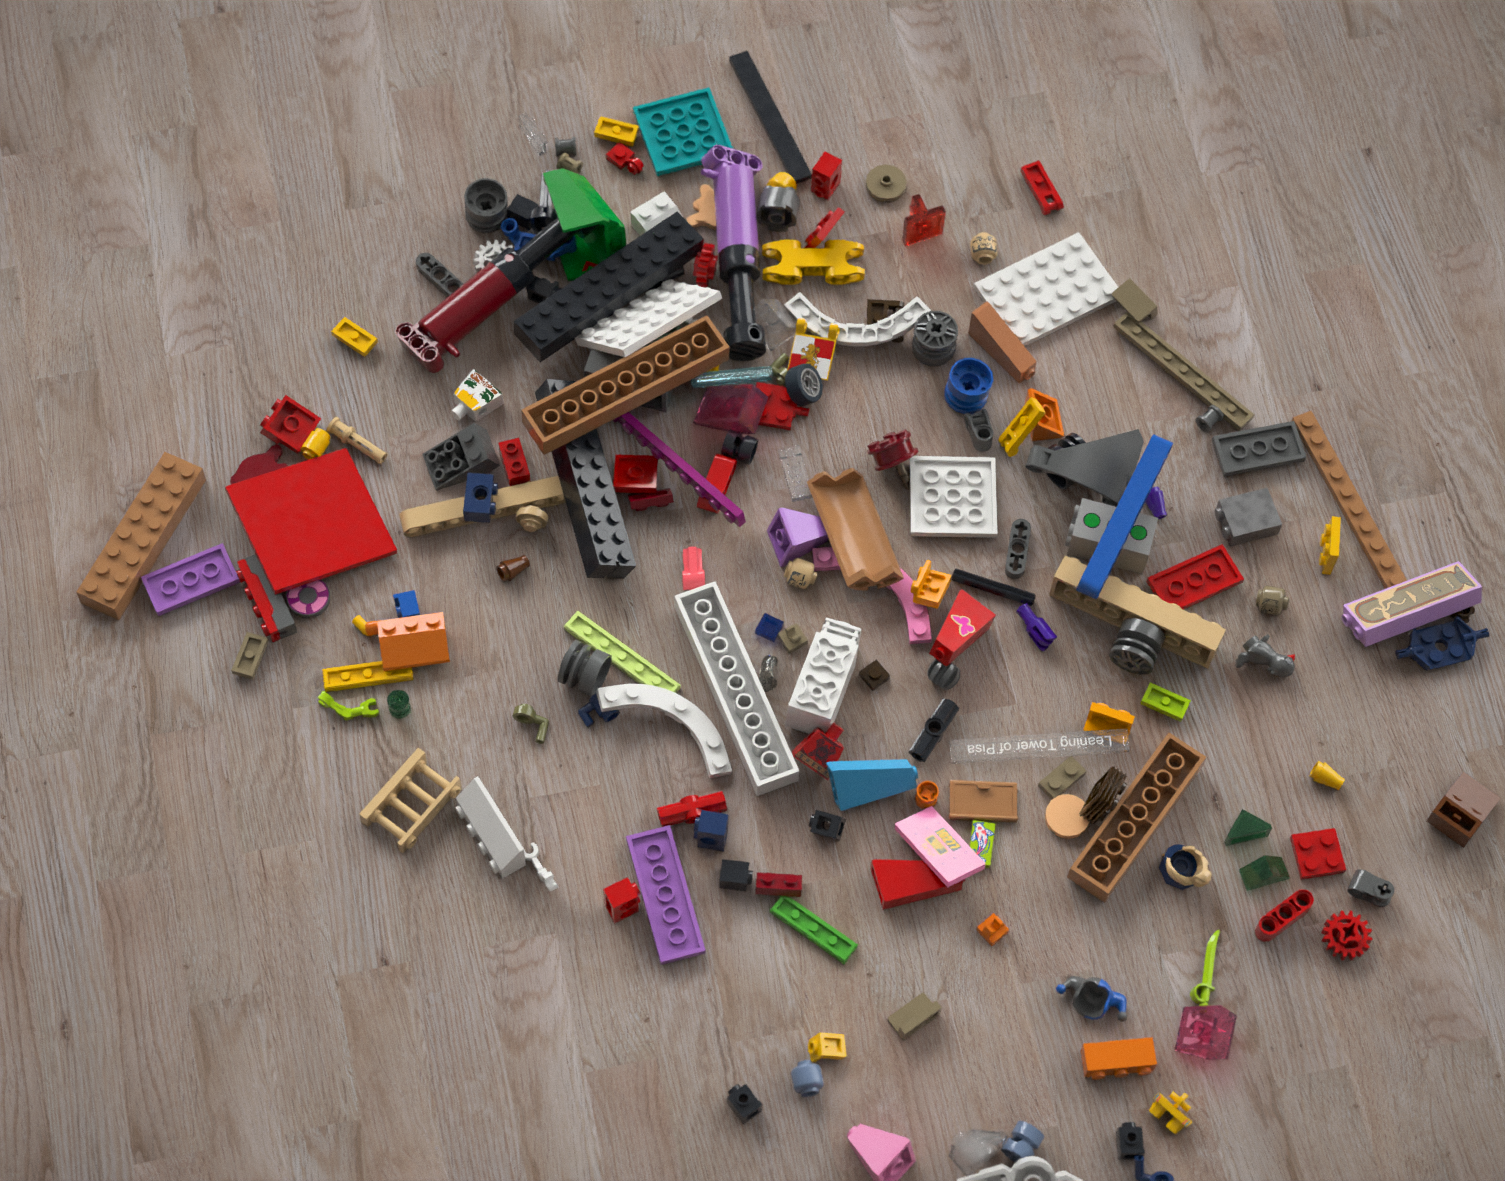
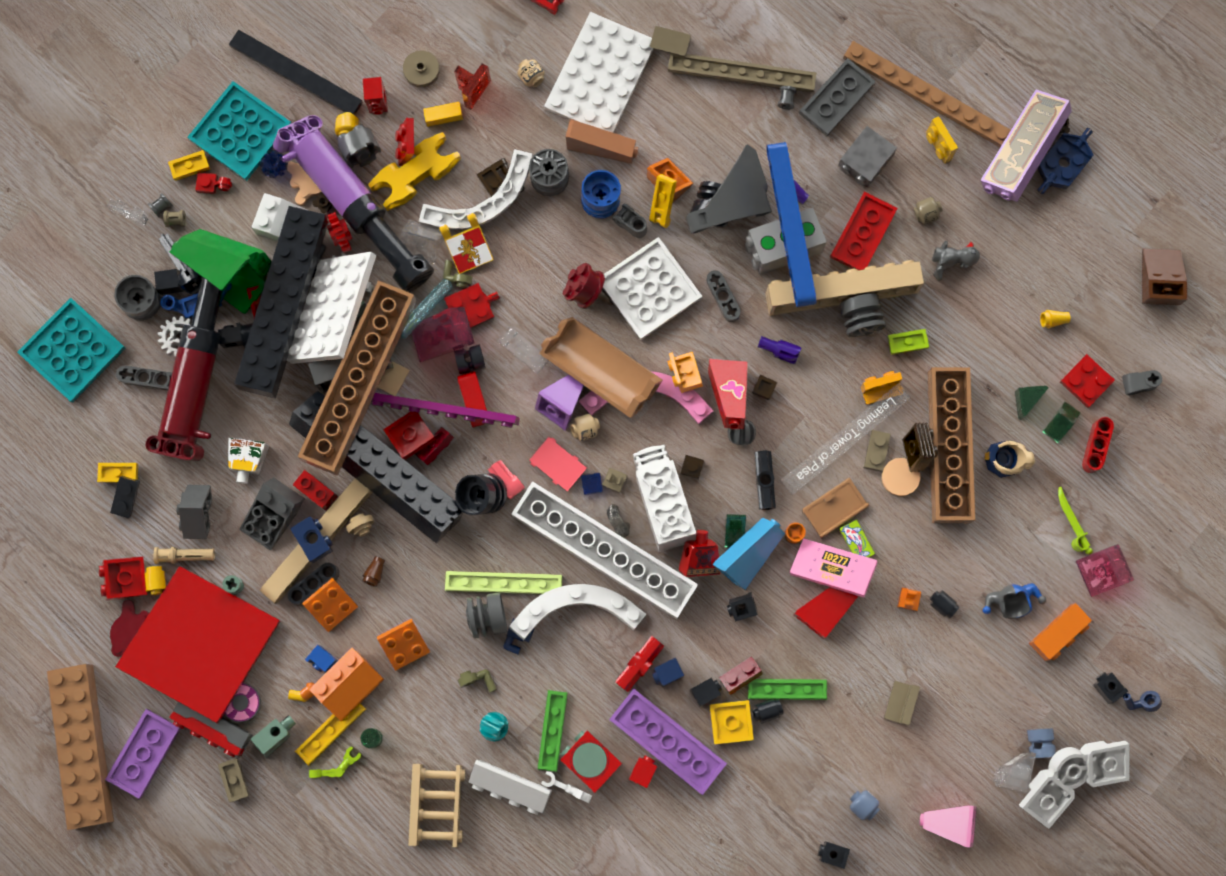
camera: 30 degrees left, 15 degrees up
(313, 640) = (266, 742): none -> sand green torso
(345, 359) = (125, 496): none -> black plate
(380, 493) = (226, 584): none -> sand green bush
(394, 409) = (194, 511): none -> dark grey brick
(395, 213) = (71, 350): none -> teal plate
(442, 535) = (304, 585): none -> black beam
(452, 566) = (330, 604): none -> orange plate
(490, 643) = (403, 644): none -> orange plate
(516, 769) = (494, 726): none -> teal piece
(566, 813) = (552, 731): none -> bright green tile
(581, 861) = (590, 760): none -> panel
(655, 419) = (393, 379): none -> tan window
(660, 561) = (480, 494): none -> black wheel
(690, 176) = (269, 160): none -> clear blue piece
(706, 235) = (324, 208): none -> dark brown plate
(738, 919) = (731, 722): none -> yellow plate
(751, 589) = (558, 464): none -> coral piece
(780, 932) = (768, 711): none -> black brick
(803, 384) = (481, 277): black wheel -> none
(827, 1046) = (860, 771): yellow bracket -> none
(874, 748) = (734, 528): none -> clear green slope
(876, 233) = (443, 114): none -> yellow slope
(993, 587) = (727, 338): black axle -> none
(996, 651) = (764, 387): none -> dark brown plate
(1023, 954) = (944, 603): none -> black brick
(1179, 1120) = (1129, 645): yellow hips -> none
(1337, 929) = (1148, 437): red gear -> none

